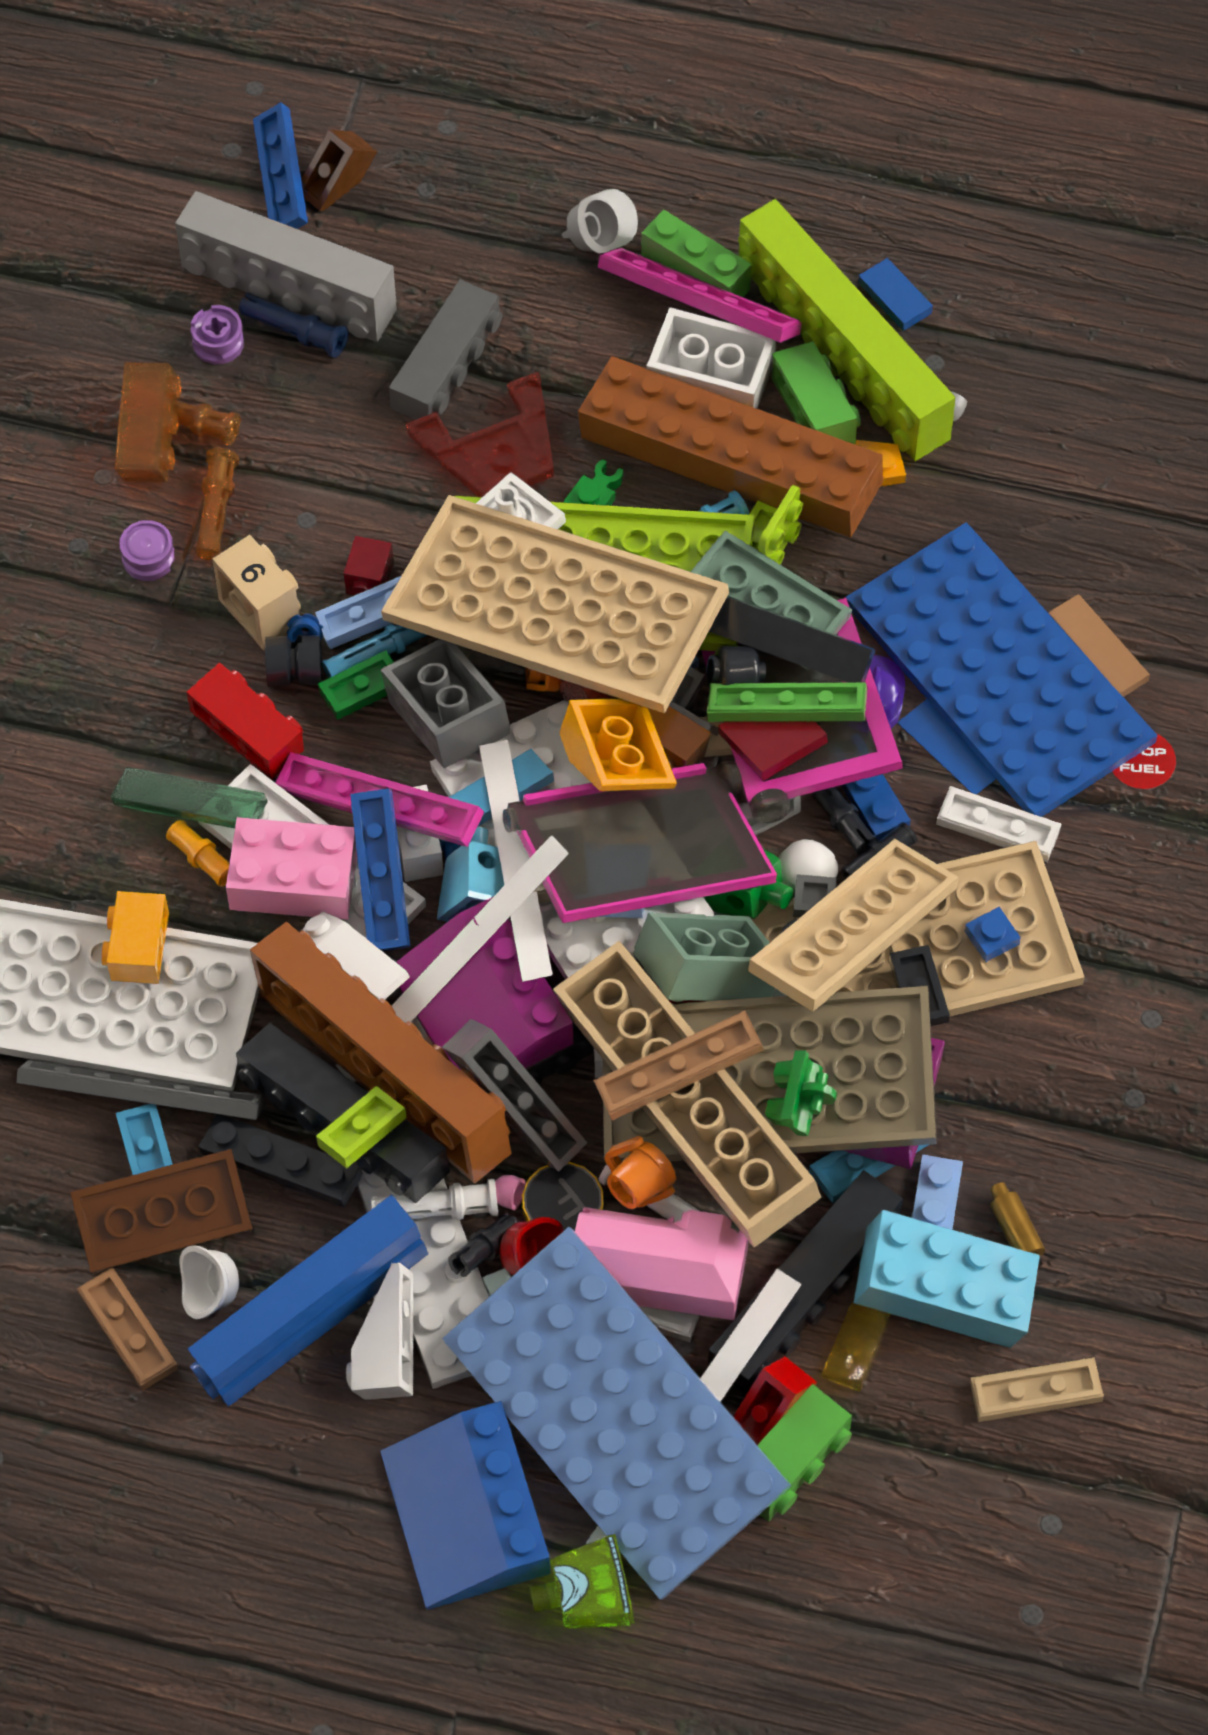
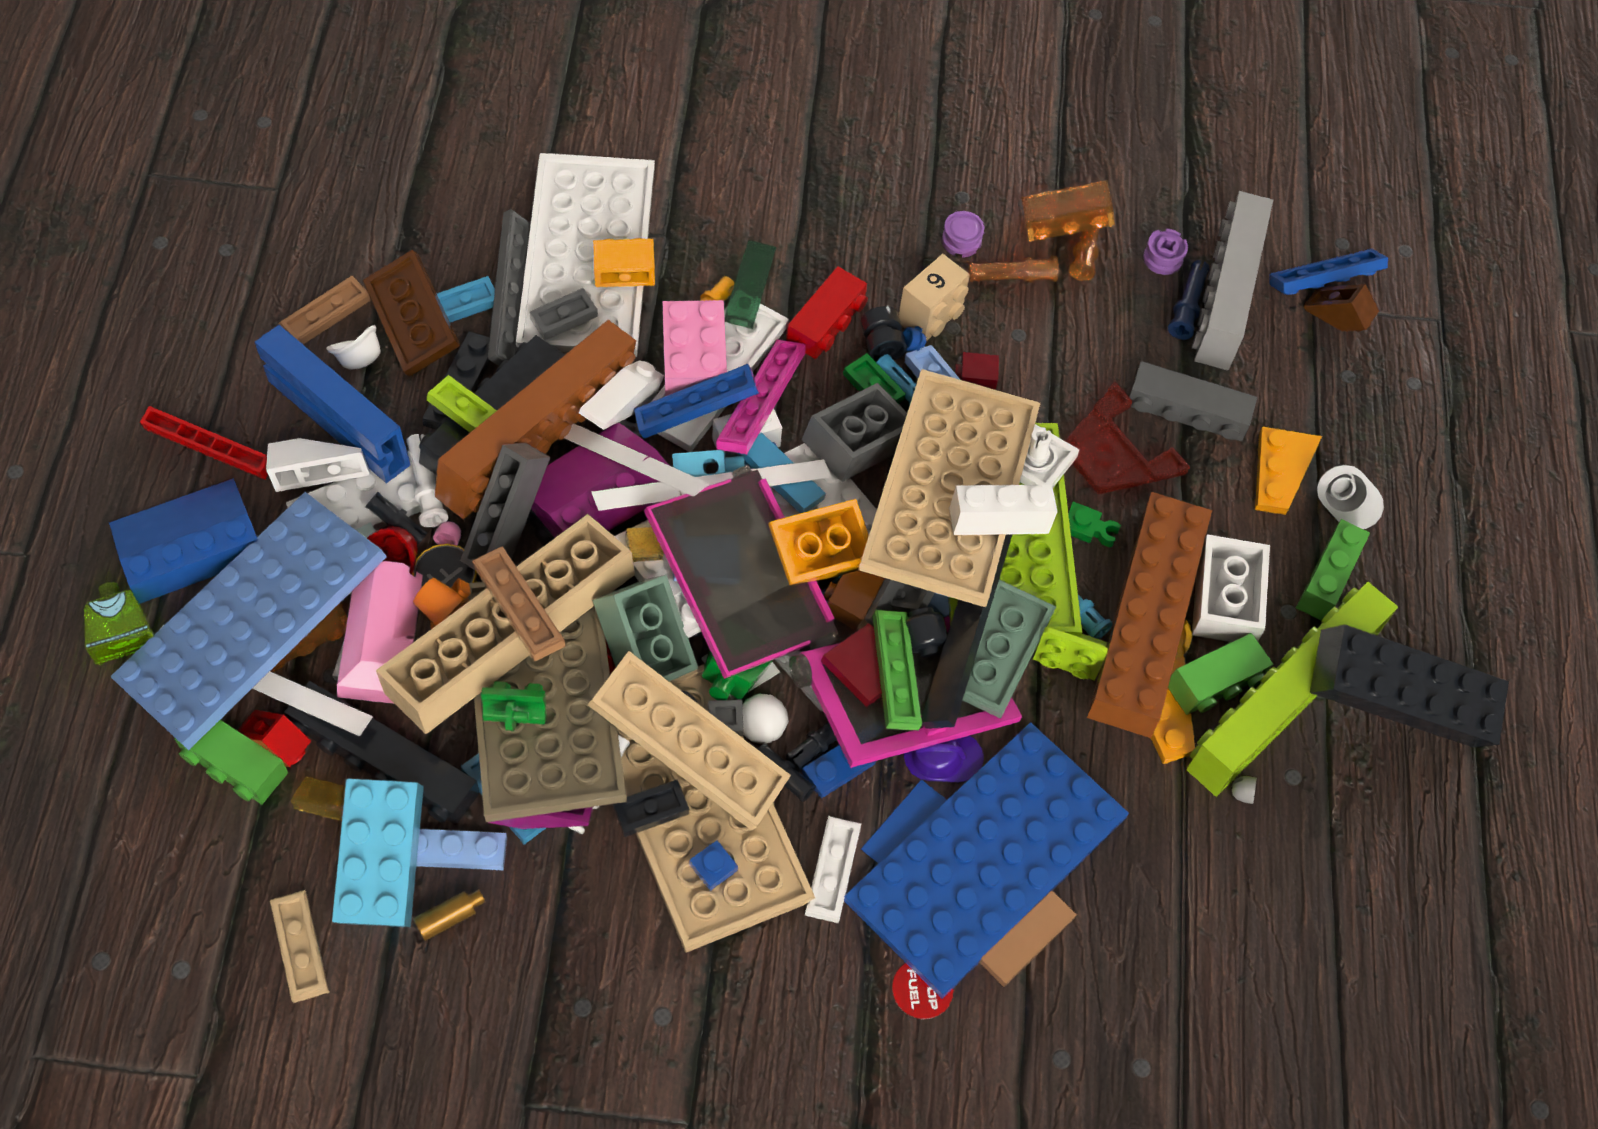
camera: 75 degrees right, 0 degrees up
(205, 1018) = (563, 314): none -> dark grey plate
(325, 1477) = (205, 442): none -> red piece
(545, 283) = (1281, 467): none -> light orange wing
(589, 939) = (643, 544): none -> clear yellow tile
(616, 545) = (1002, 509): none -> white brick
(700, 294) = (1294, 573): dark pink tile -> none
(870, 215) = (1409, 686): none -> black brick
(895, 294) = (1351, 736): blue tile -> none

